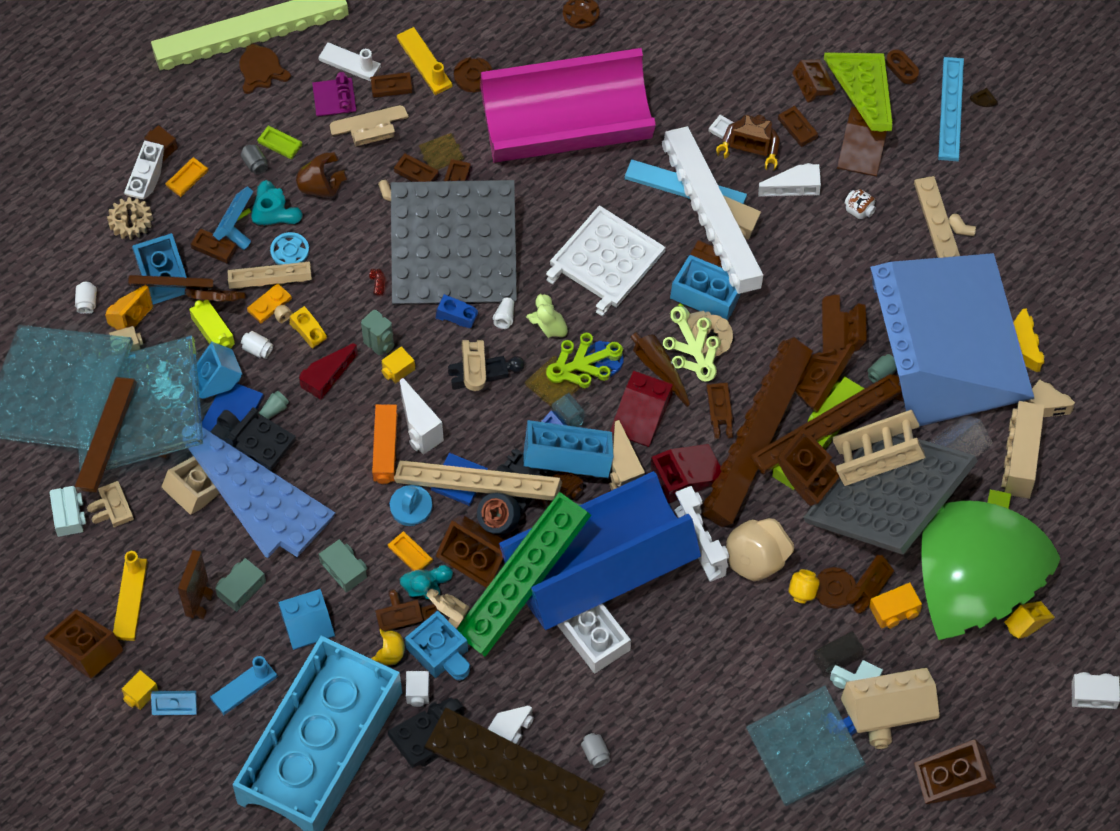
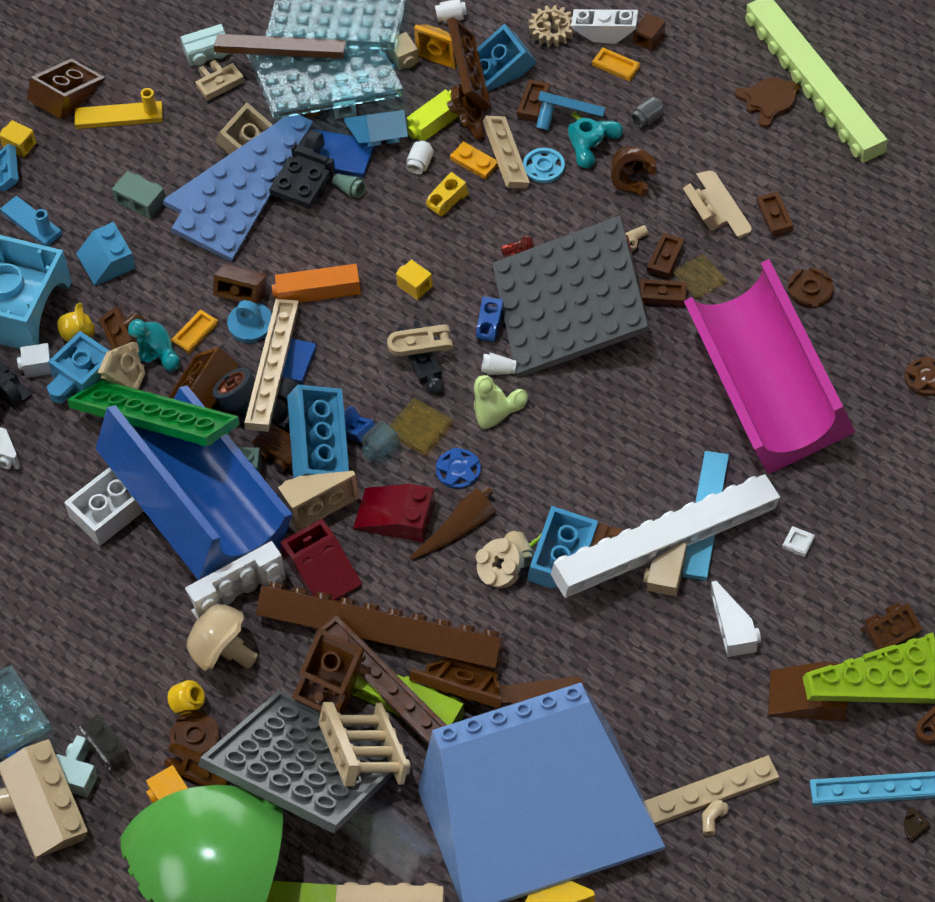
camera: 85 degrees right, 5 degrees down
(193, 586) = (113, 142): reddish brown tile -> none
(279, 142) = (677, 132): lime tile -> none
(280, 311) = (462, 170): tan hinge -> none
(325, 372) = (393, 218): dark red slope -> none
(334, 96) = (748, 168): magenta hinge -> none
(342, 565) = (169, 274): sand green brick -> none
(358, 65) = (797, 173): white piece -> none
(372, 505) = (239, 284): none -> reddish brown brick
(377, 332) = (444, 249): sand green brick -> none
(422, 423) = (345, 301): white slope -> none
(424, 61) = (801, 249): yellow piece -> none
(582, 363) = (443, 442): lime plant -> none
(606, 258) = (588, 449): white plate -> none
(694, 345) = (483, 543): yellowish green plant -> none
(719, 408) = (408, 588): reddish brown hinge -> none
(752, 135) = (785, 569): reddish brown torso -> none
(798, 126) = (817, 618): reddish brown plate -> none
(860, 204) = (718, 698): white head -> none

